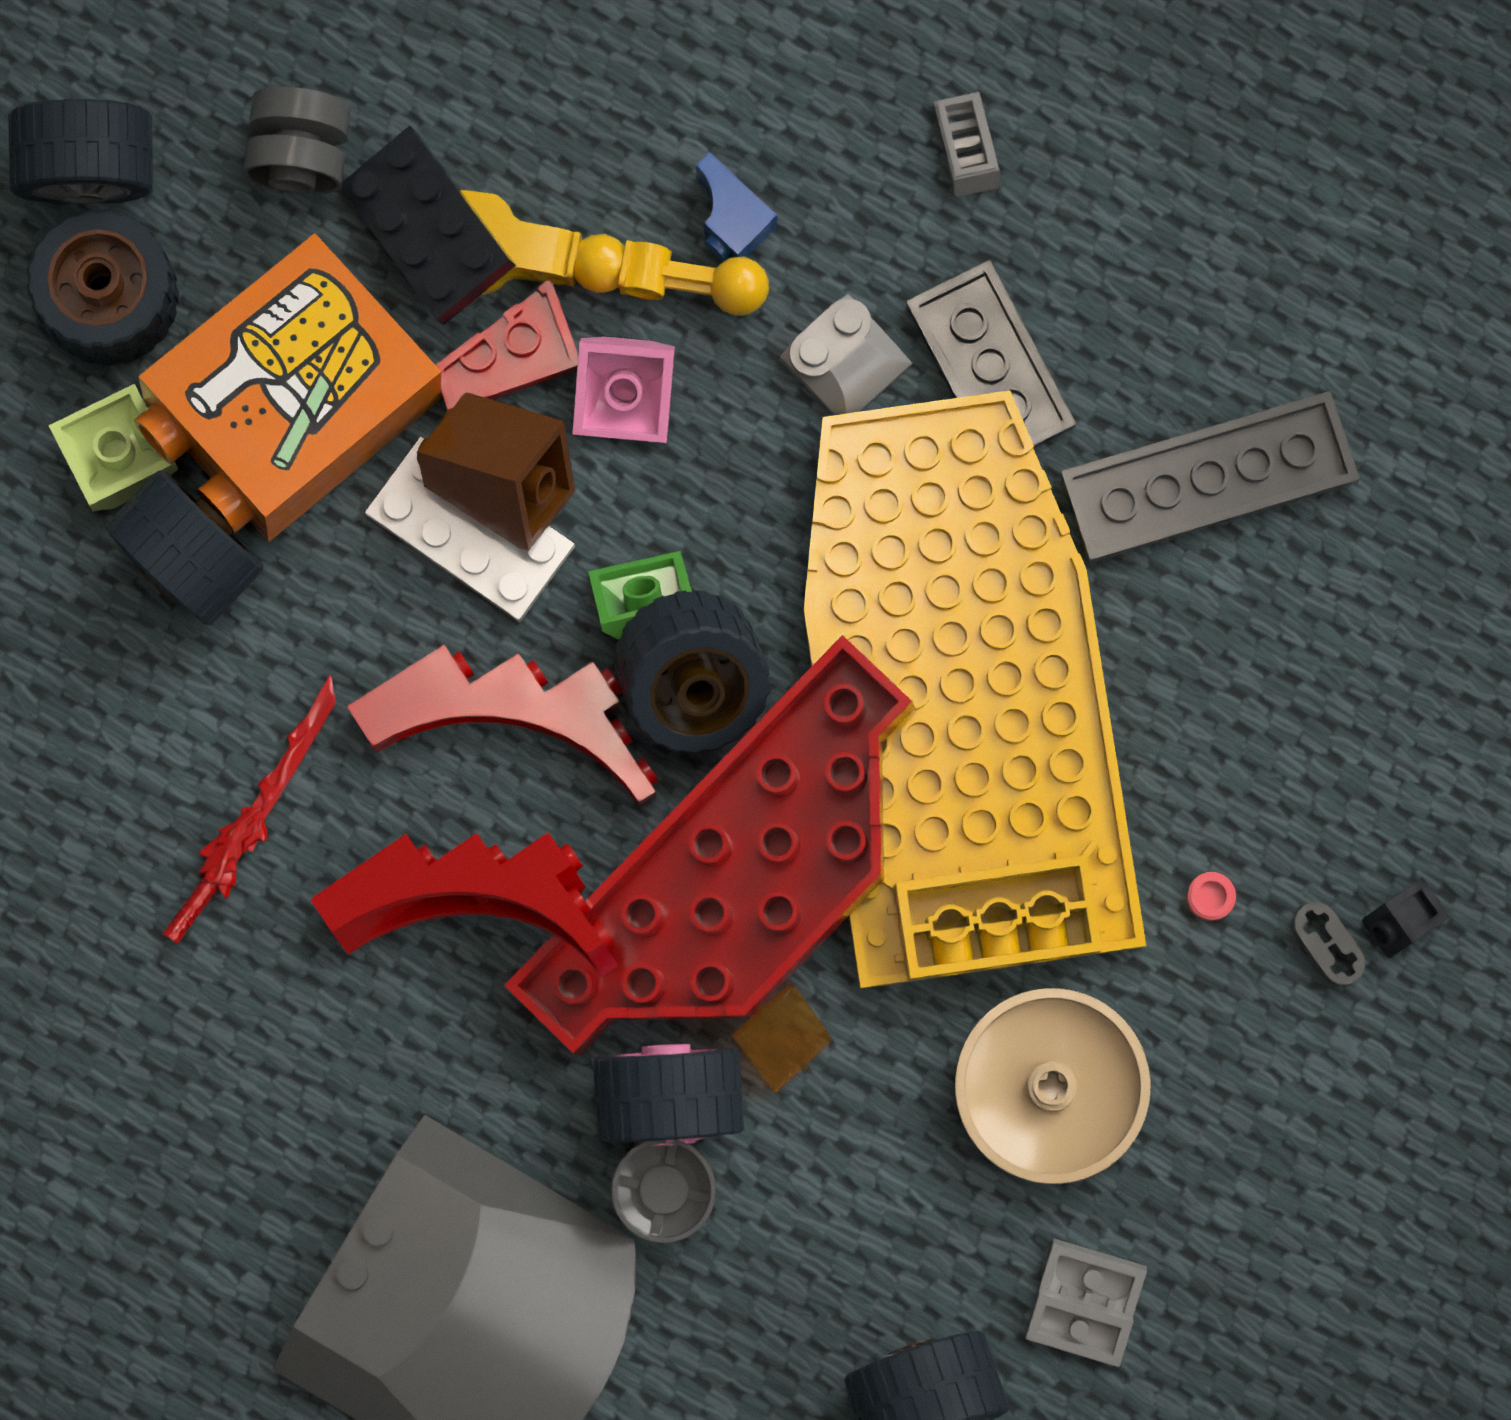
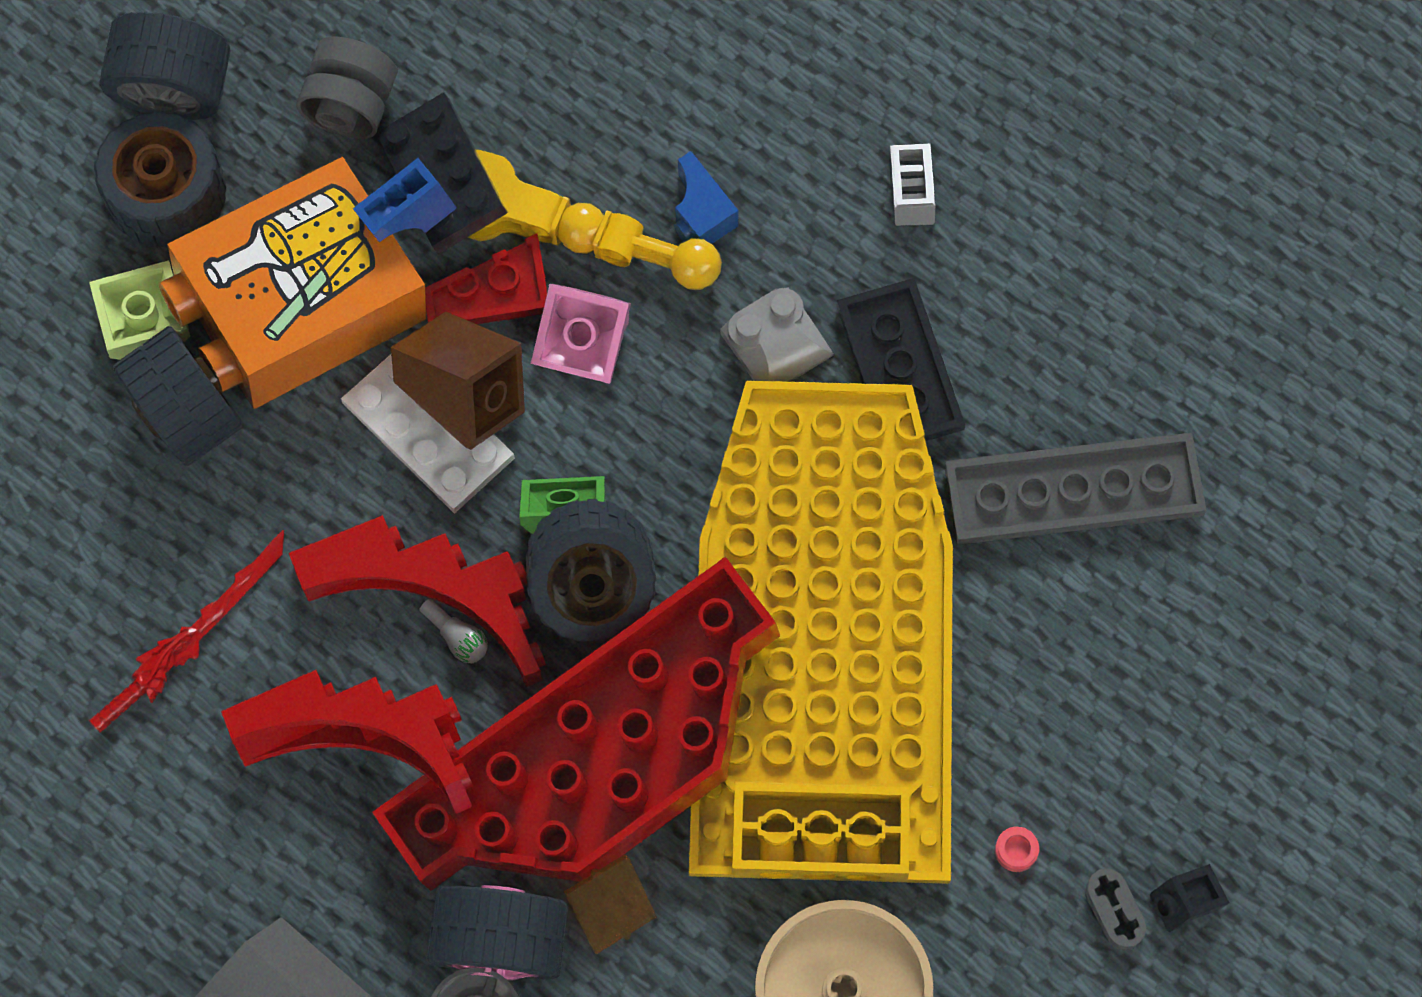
camera: 15 degrees right, 10 degrees down
(399, 280) = (405, 202): none -> blue arch
(561, 768) = (464, 640): none -> light grey piece

